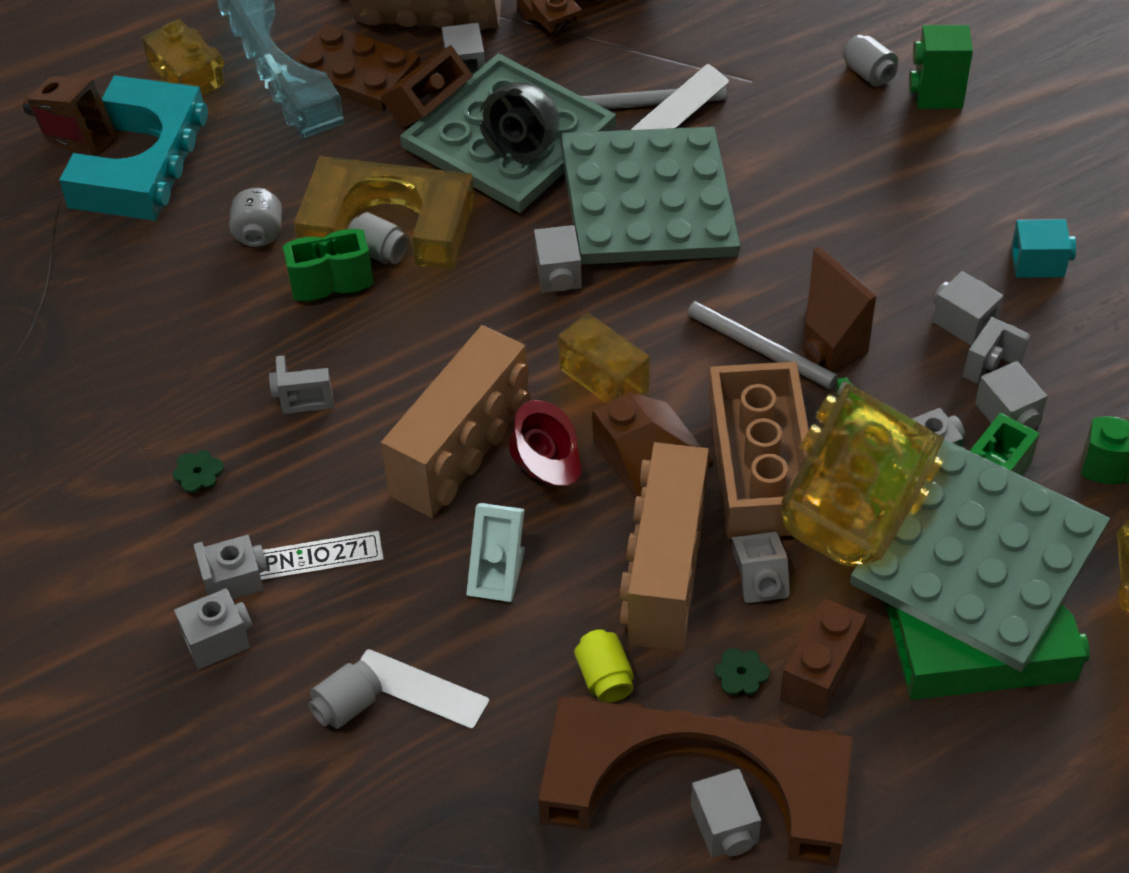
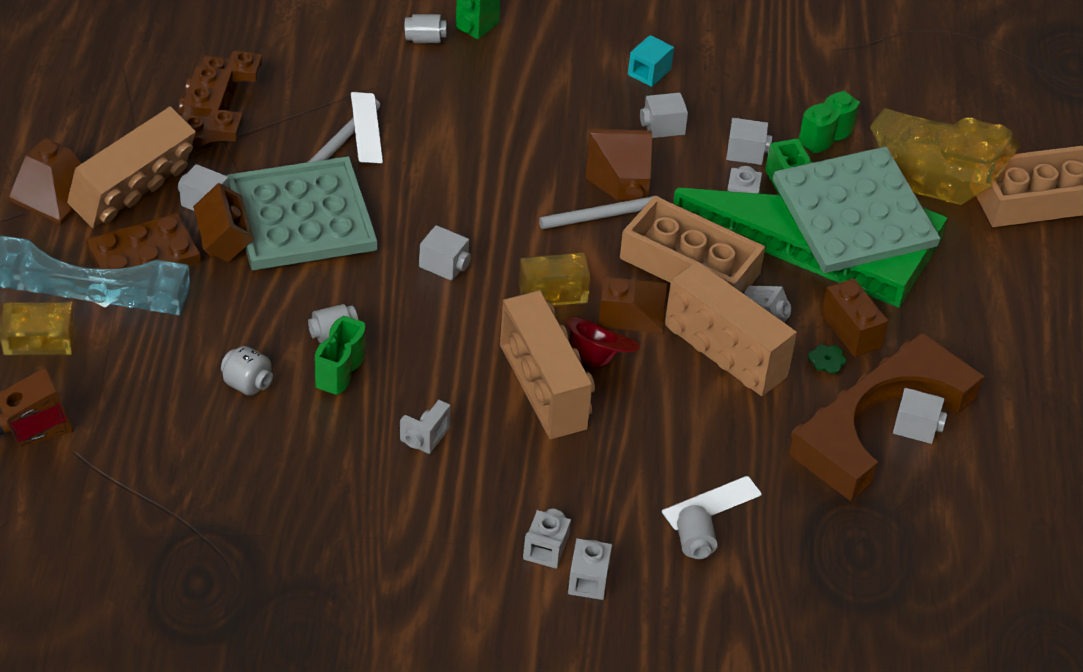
camera: 60 degrees left, 5 degrees down
(143, 182) = (95, 363): teal arch -> none
(197, 471) = (443, 516): dark green plant -> none
(322, 555) = (571, 487): white sticker -> none
(347, 186) = (328, 276): clear yellow arch -> none
(495, 552) = (656, 409): light aqua slope -> none
(519, 121) = (326, 193): pearl dark grey cylinder -> none
(604, 666) = (777, 409): neon yellow brick -> none
(648, 195) = (432, 182): sand green plate -> none
(859, 477) = (786, 213): clear yellow slope -> none
(995, 343) = (703, 124): light grey bracket -> none

